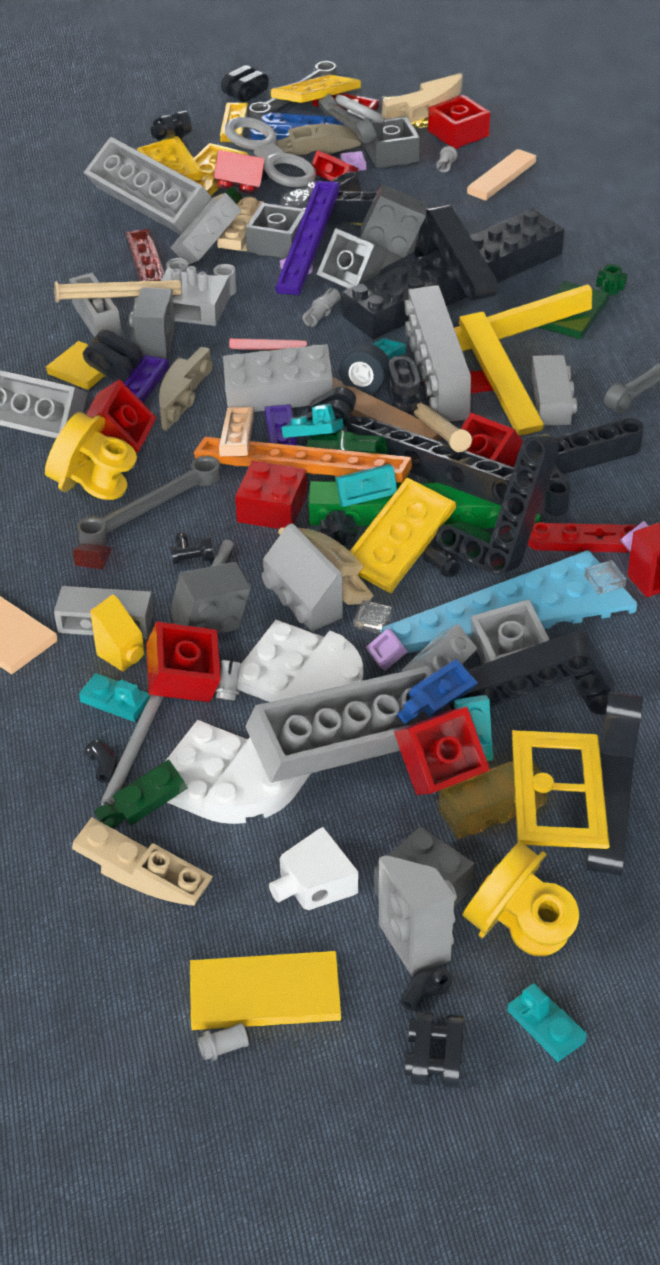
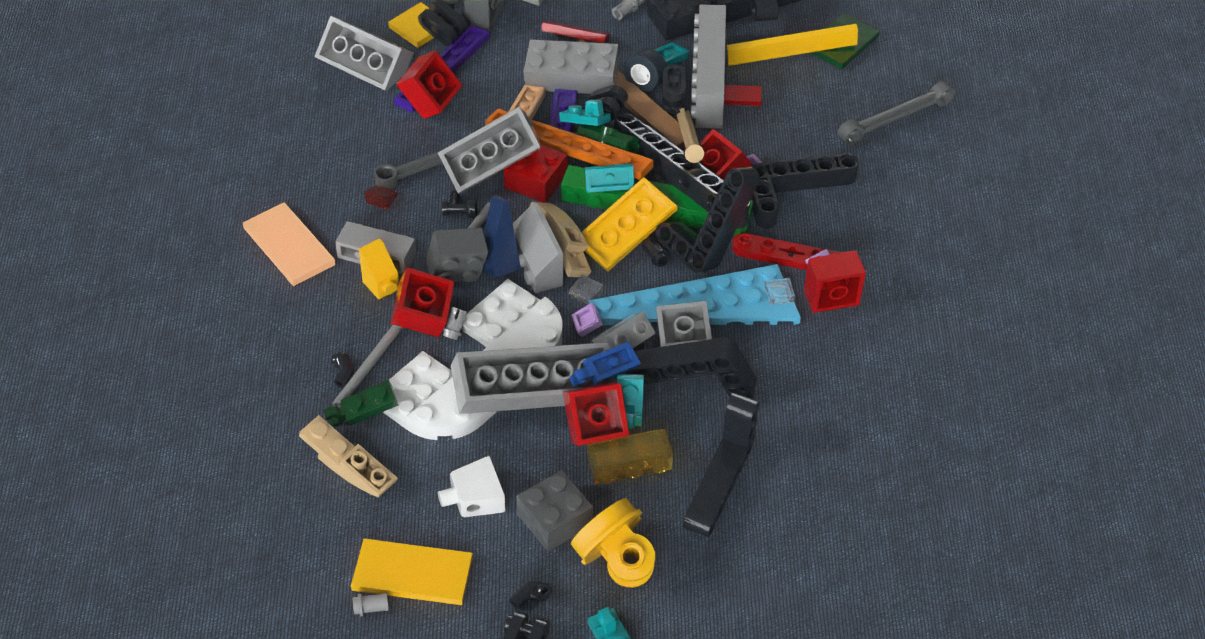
camera: 10 degrees right, 5 degrees up
(80, 445) = (397, 114): yellow piece -> none
(114, 697) = (365, 320): teal hinge -> none
(178, 385) = (488, 59): dark tan slope -> none
(214, 477) = (490, 149): none -> light grey slope
(260, 572) = (500, 239): none -> dark blue slope
(338, 526) = (580, 209): black gear -> none
(416, 913) = (536, 537): light grey slope -> none
(501, 373) = (757, 93): yellow tile -> none
(525, 782) = (655, 450): yellow door -> none
(553, 389) = (798, 115): light grey brick -> none
(611, 279) = (885, 19): dark green gear -> none

